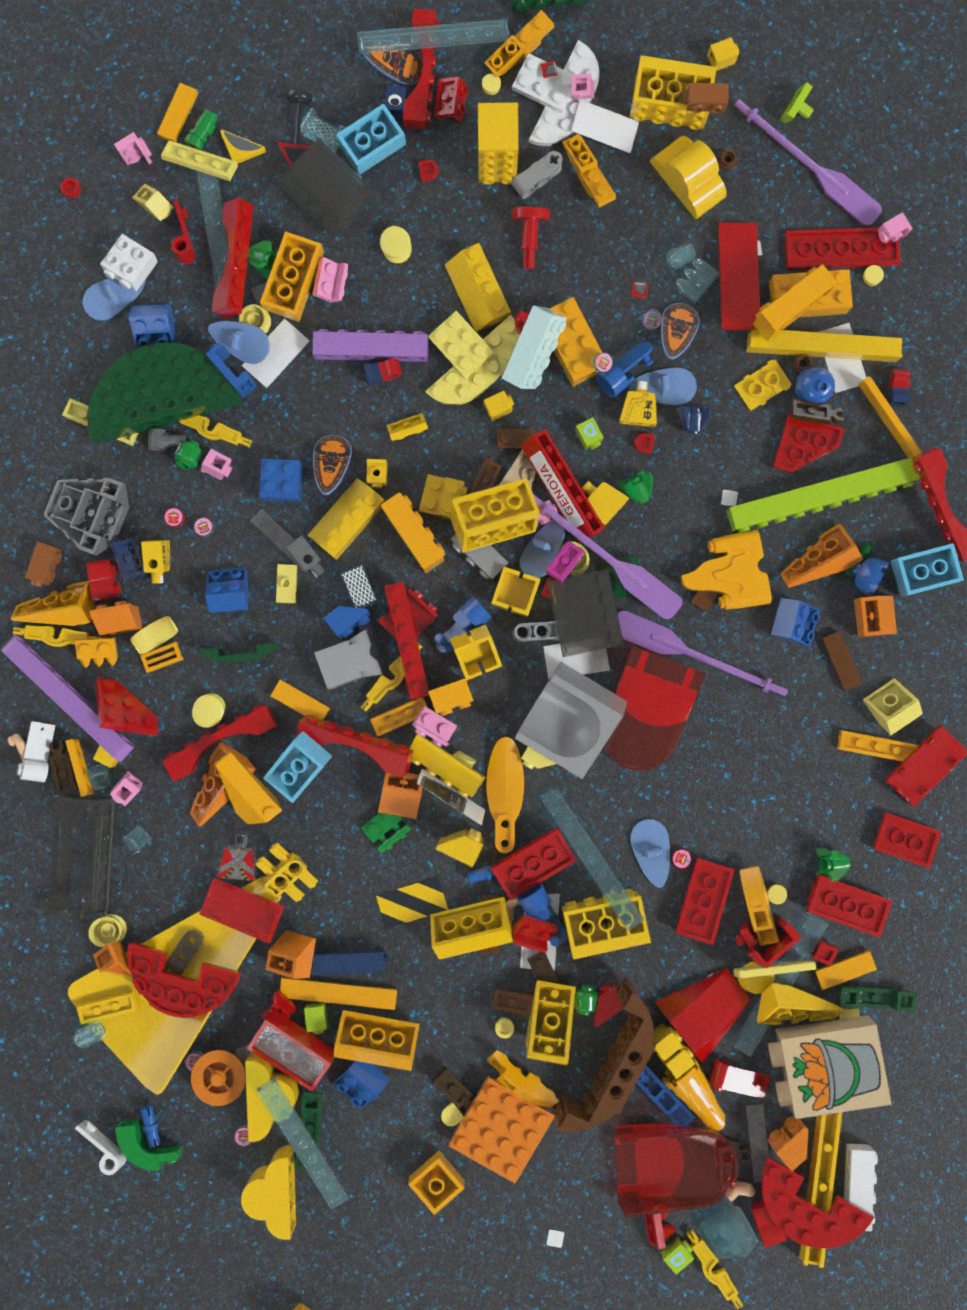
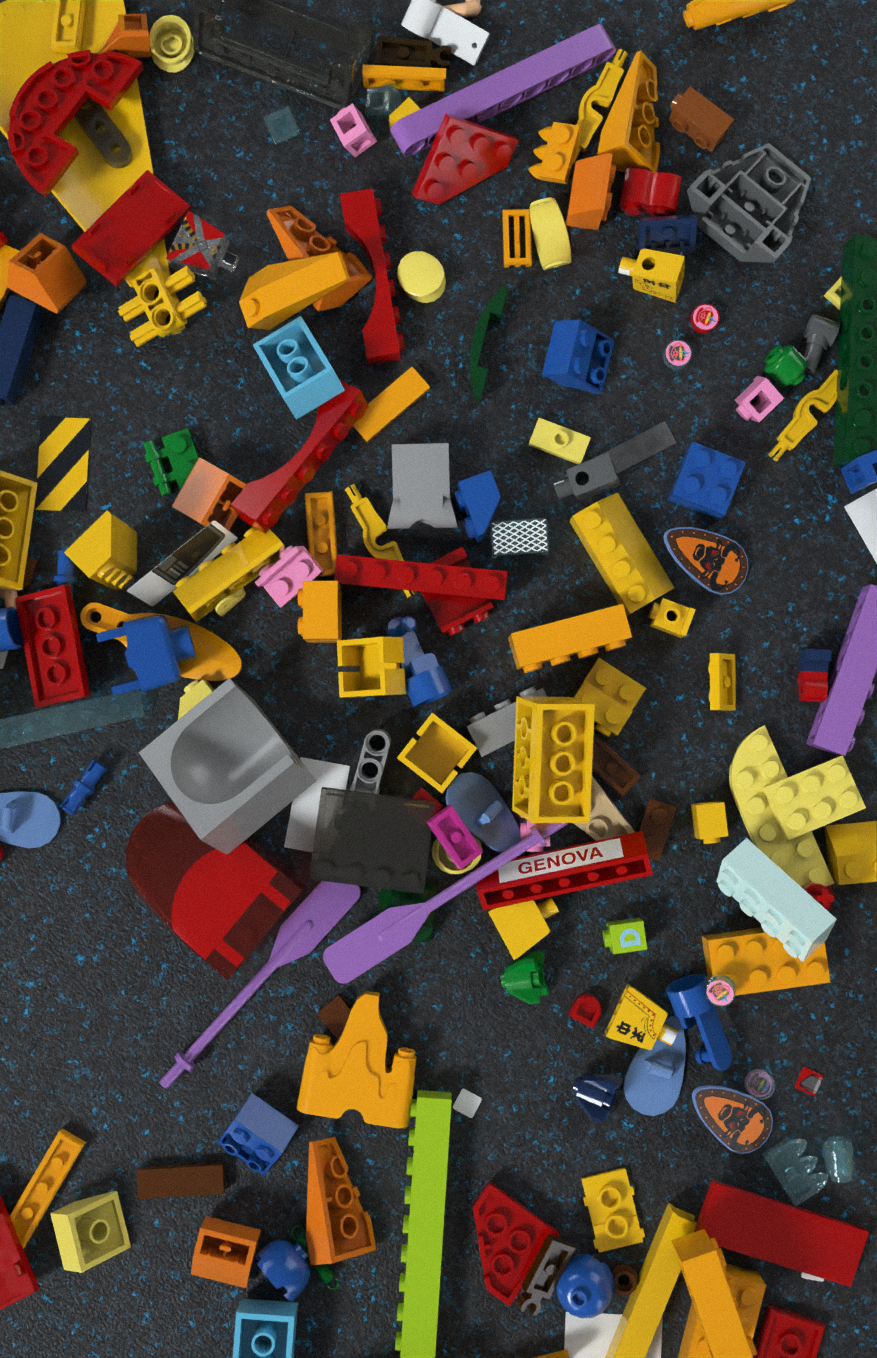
camera: 110 degrees right, 0 degrees up
(515, 795) = (152, 652): none -> blue piece
(617, 812) = (83, 787): none -> blue pin

